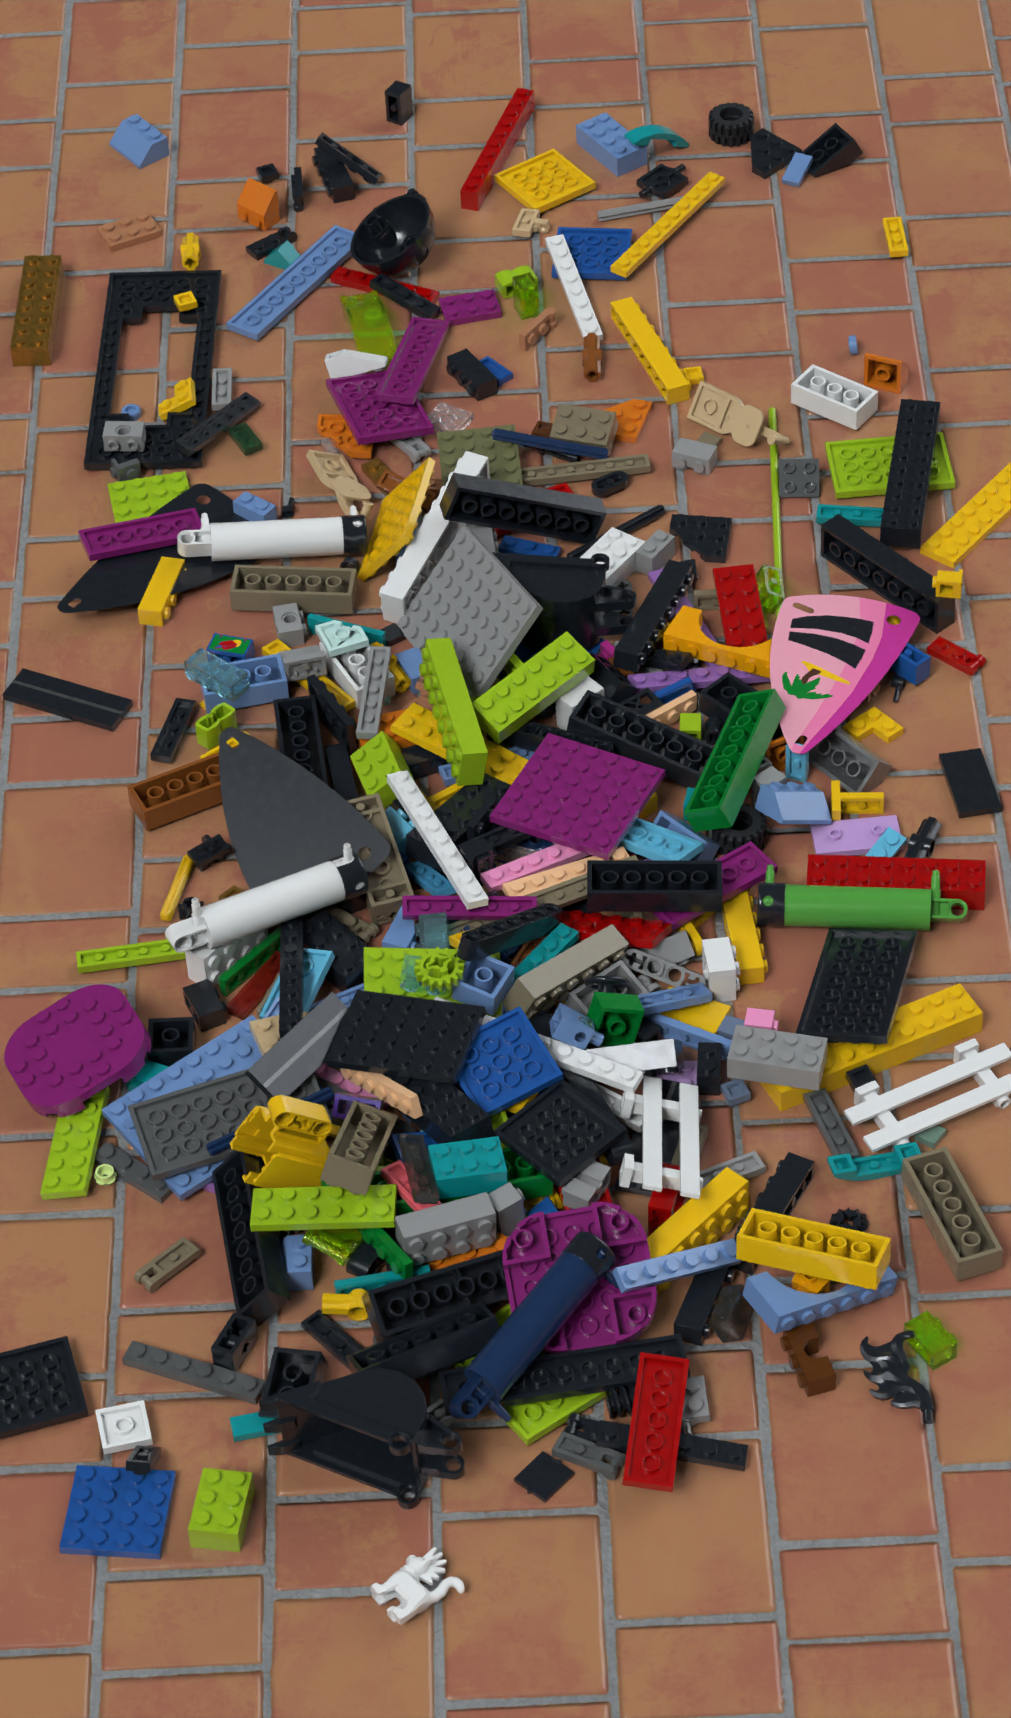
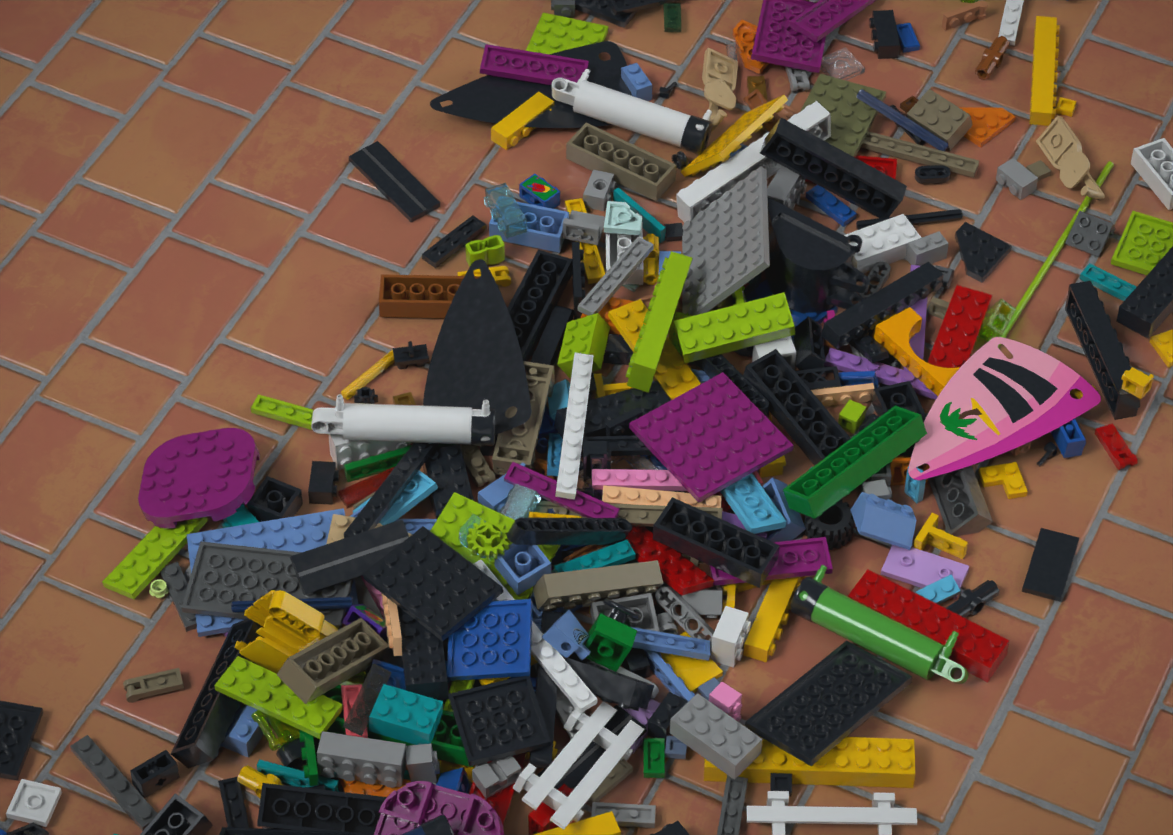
camera: 25 degrees right, 5 degrees up
(721, 1110) = (654, 757): none -> green plate

